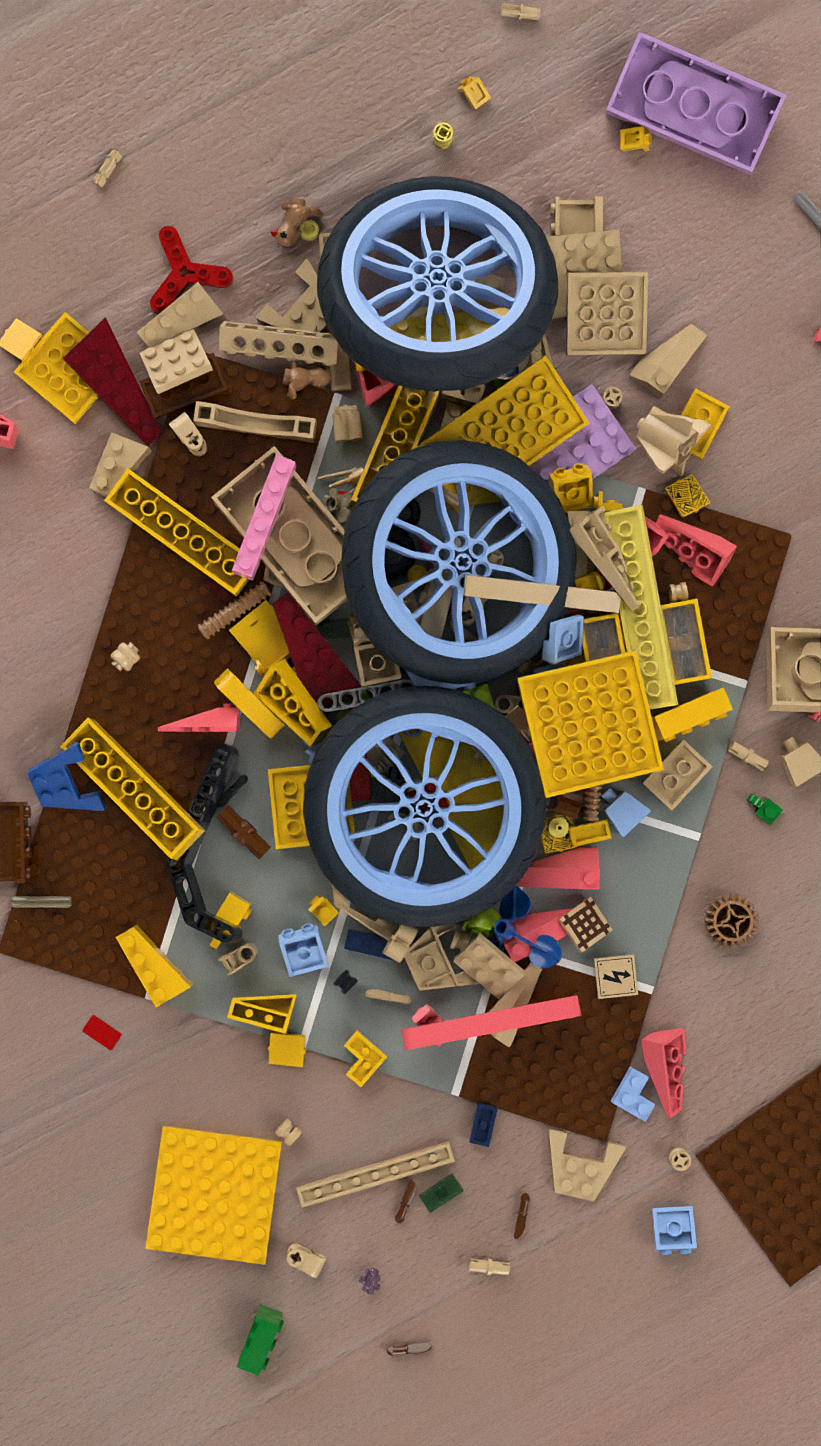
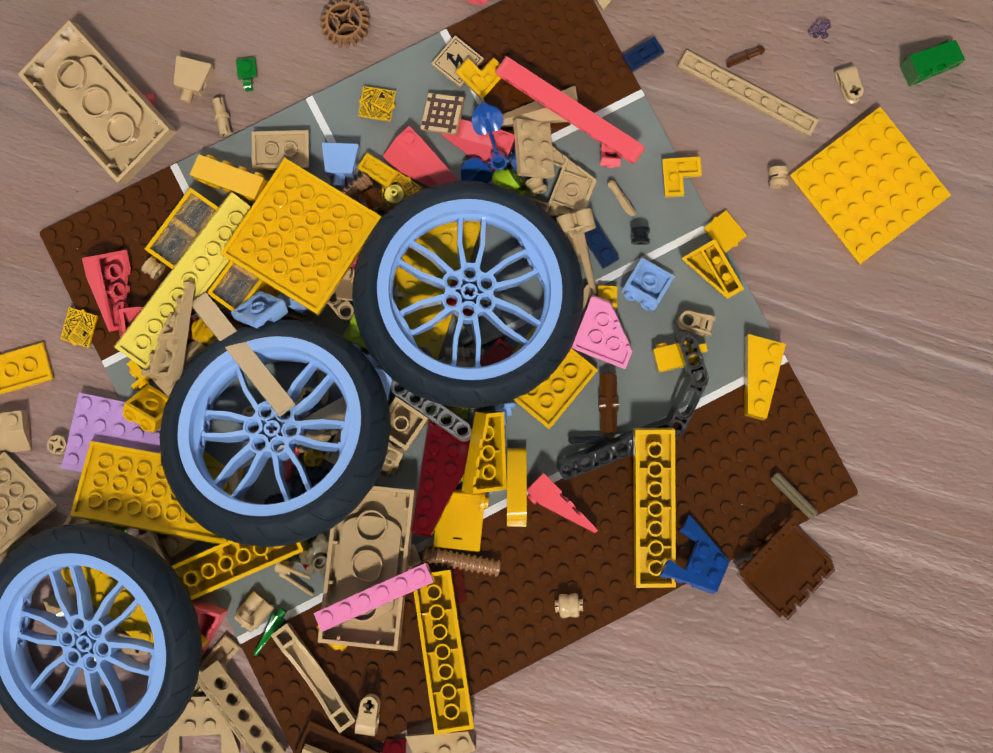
camera: 130 degrees left, 5 degrees down
(102, 1032) = (840, 368): red sticker -> none
(297, 879) = (603, 334): none -> bright pink plate
(299, 378) = (252, 677): medium nougat animal -> none
(323, 431) = (275, 622): none -> green piece
(333, 628) = (406, 479): clear green plate -> none
(441, 1192) = (716, 38): clear green plate -> none
(583, 977) = (479, 80): none -> yellow plate
(643, 883) = (377, 103): none -> yellow piece
(669, 438) = (49, 376): tan brick -> none

